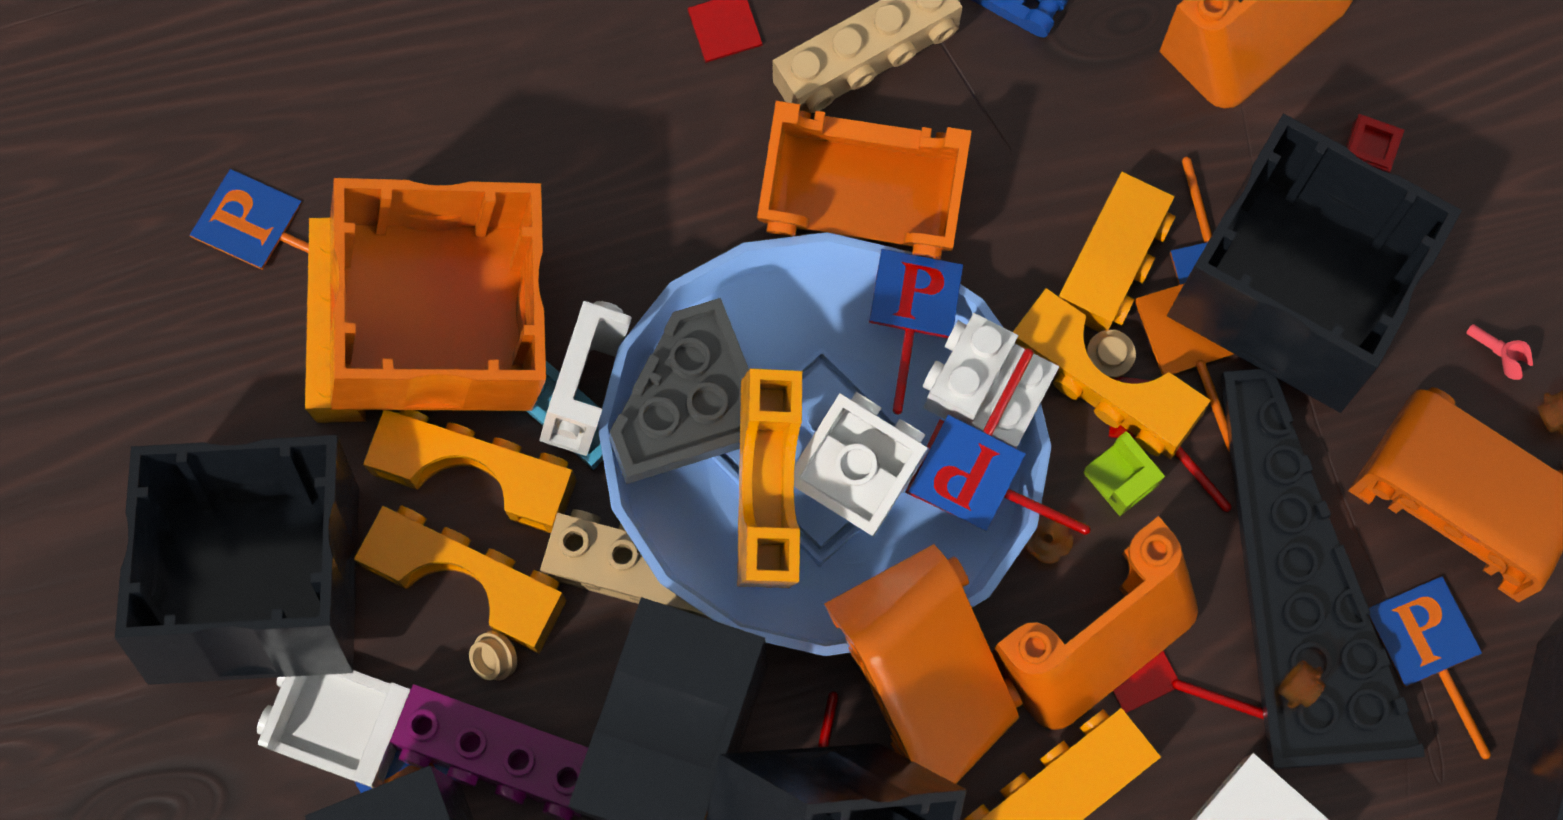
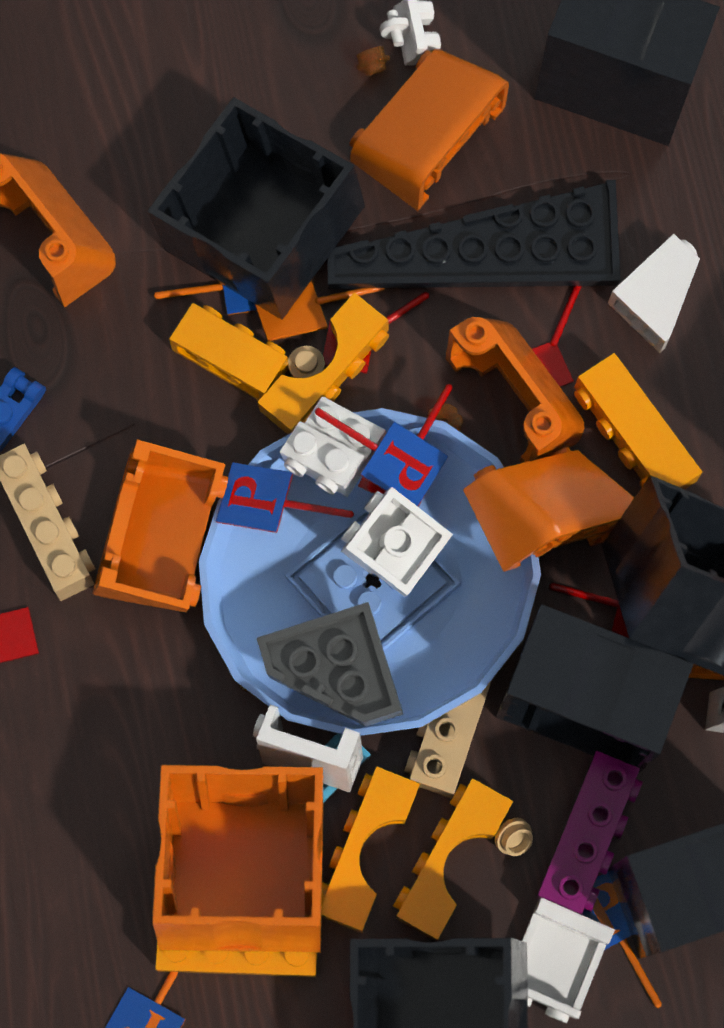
camera: 90 degrees left, 0 degrees up
(766, 479) = (452, 606): light orange arch -> none
(1124, 474) = (399, 362): lime panel -> none
(1302, 685) = (565, 253): clear orange plate -> none
(1375, 142) = (156, 162): red tile -> none
(1426, 637) = (528, 172): blue piece -> none
(1509, 352) = (324, 89): coral hand -> none

